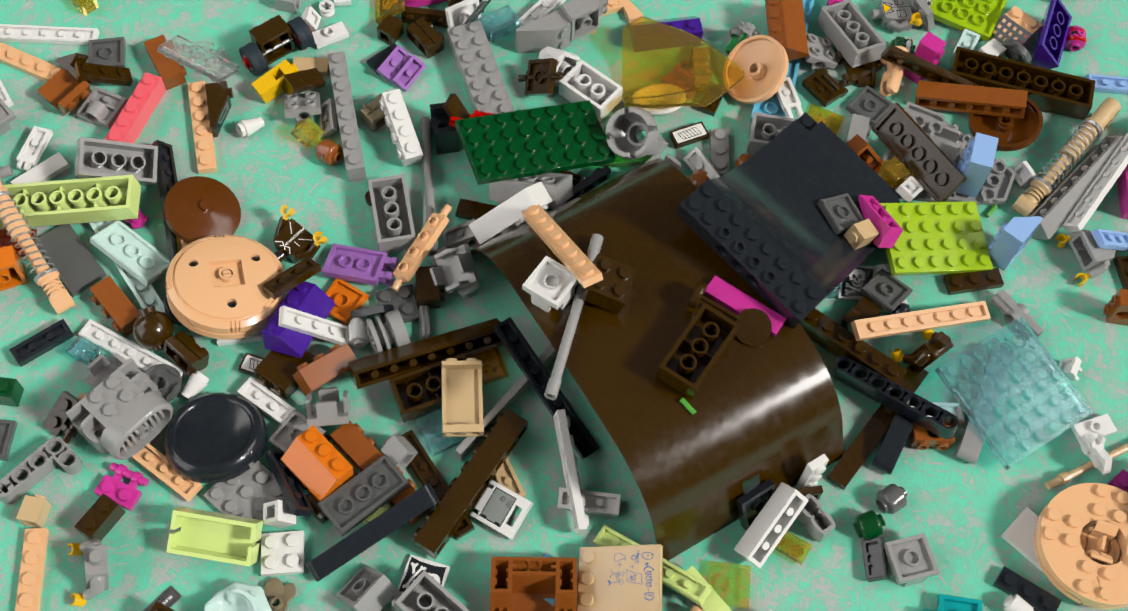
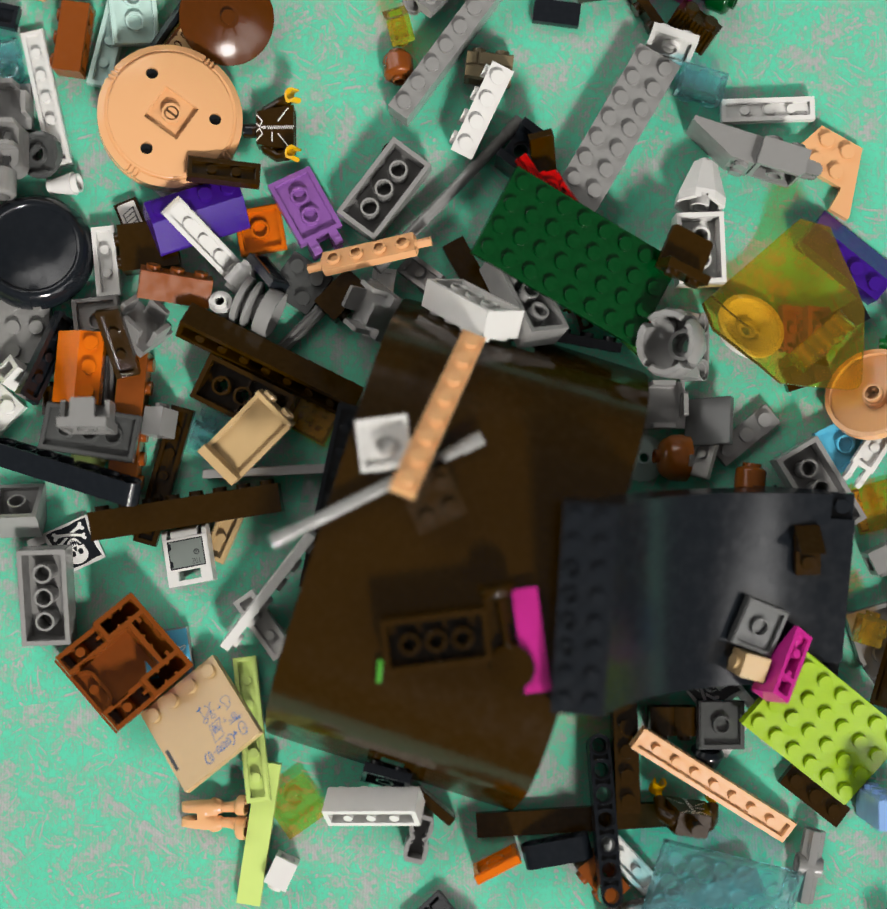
camera: 50 degrees right, 25 degrees up
(152, 328) = (75, 96): dark brown brick -> none
(186, 353) = (84, 147): dark brown brick -> none
(327, 422) = (117, 341): none -> dark brown plate
(328, 118) = (433, 28): light grey plate -> none
(360, 475) = (83, 417): none -> light grey panel
(363, 349) = (220, 303): none -> white brick
(401, 68) = (557, 40): medium lavender slope -> none
(425, 37) = (614, 28): dark brown brick -> none
(540, 77) = (665, 189): dark brown plate -> none
(589, 91) = (685, 257): none -> dark brown bracket
(689, 135) = (739, 388): tile -> none
(695, 156) = (710, 421): none -> dark grey tile
(793, 547) = (378, 840): clear yellow plate -> none
(813, 472) = (454, 807): white plate -> none
(814, 151) = (808, 549): none -> dark brown slope
(865, 152) = (864, 584): dark orange slope -> none
(869, 525) = (457, 887): dark green head -> none
(872, 483) = (496, 863): none -> orange tile
(891, 499) = (502, 889): dark grey head -> none
(909, 189) = (860, 662): white plate -> none

